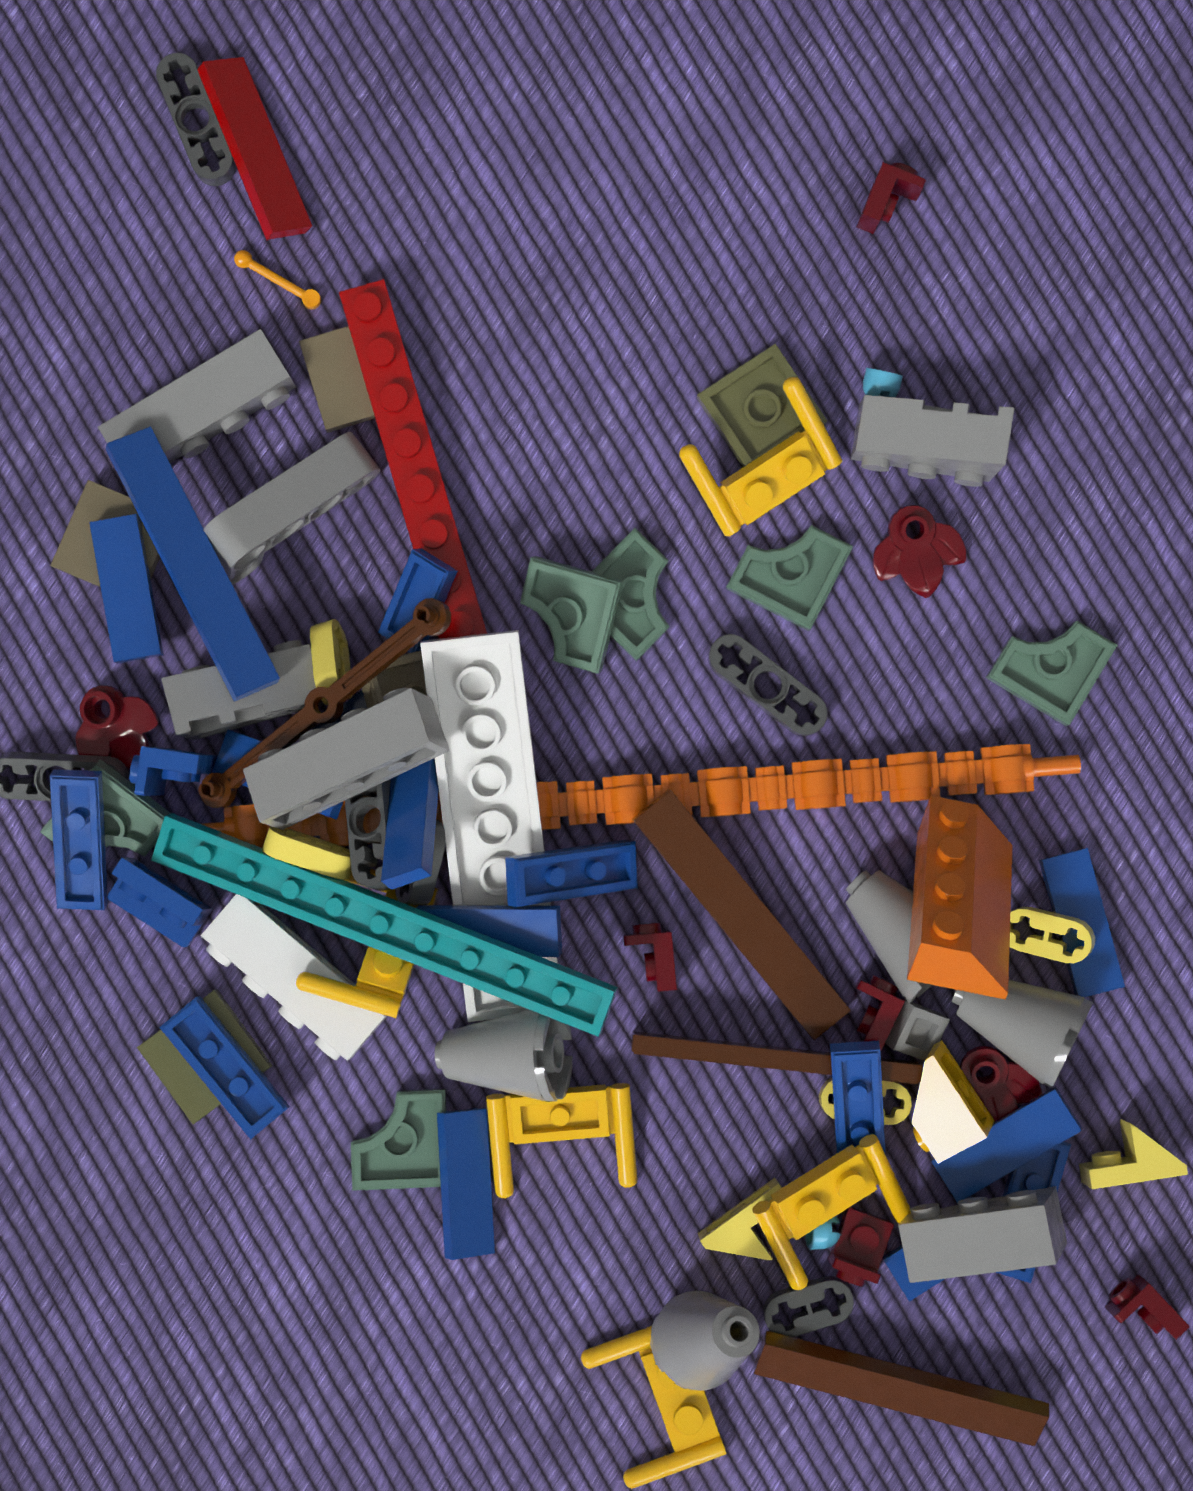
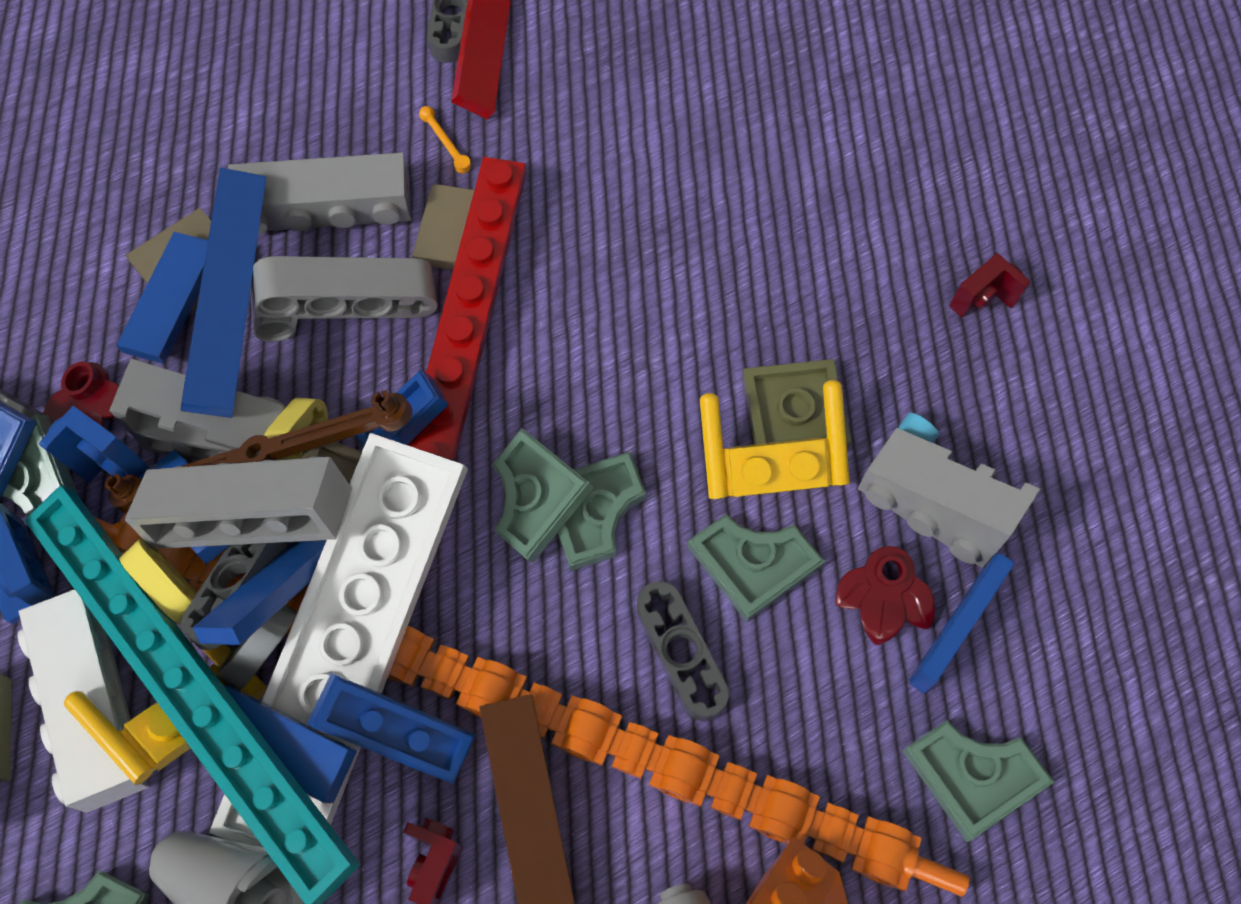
camera: 25 degrees right, 20 degrees down
(991, 546) = (960, 623): none -> blue tile

